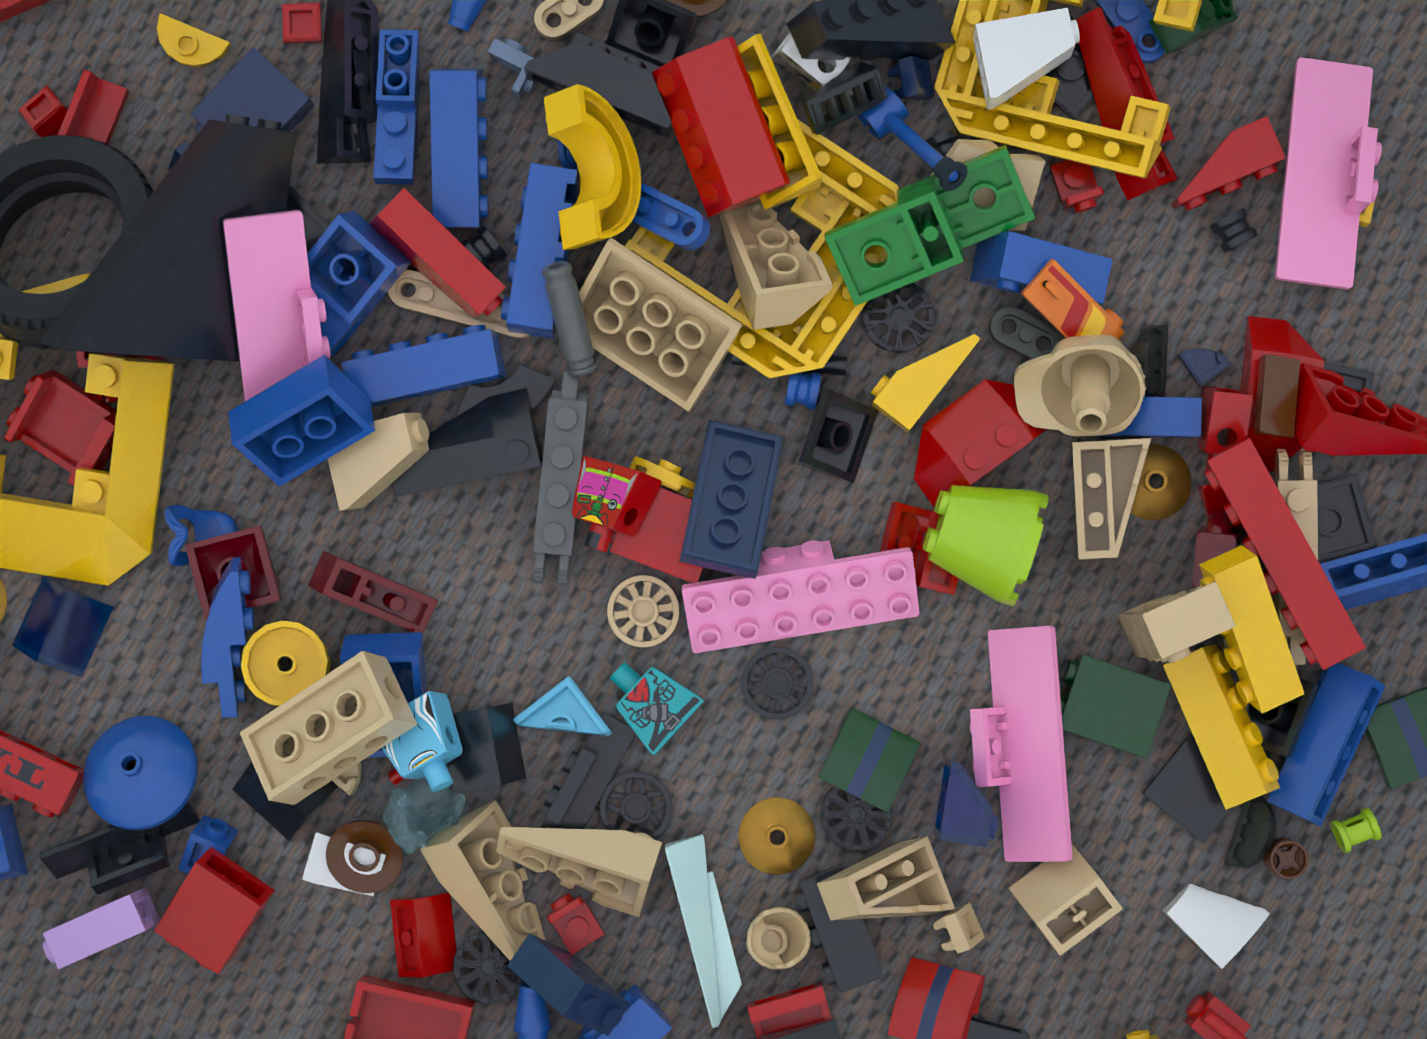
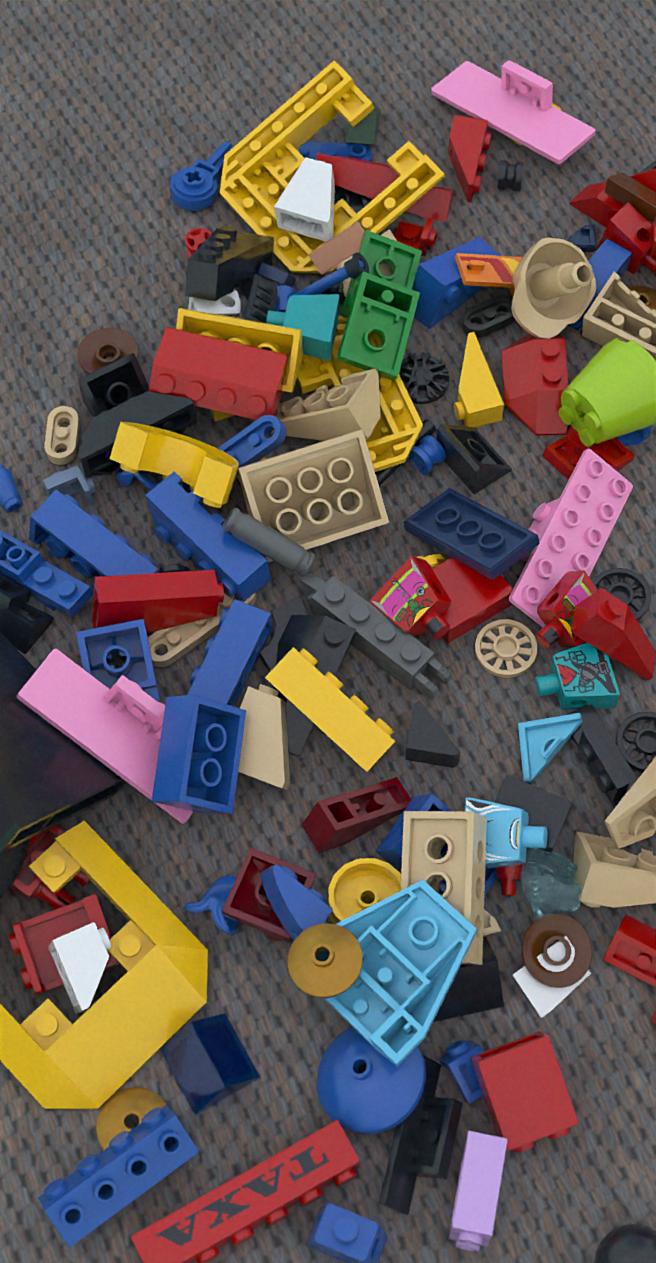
camera: 55 degrees left, 25 degrees down
(46, 461) = (81, 962): none -> white slope
(201, 679) = (327, 977): none -> pearl gold dish
(220, 736) = (409, 962): none -> medium azure wedge
(444, 500) = (330, 709): none -> yellow brick
(487, 605) = (428, 741): none -> black slope
(710, 712) = (615, 631): none -> red slope
(711, 656) = (559, 608): none -> red torso
(853, 169) = (316, 318): none -> teal torso
(986, 124) = (337, 248): none -> nougat sticker

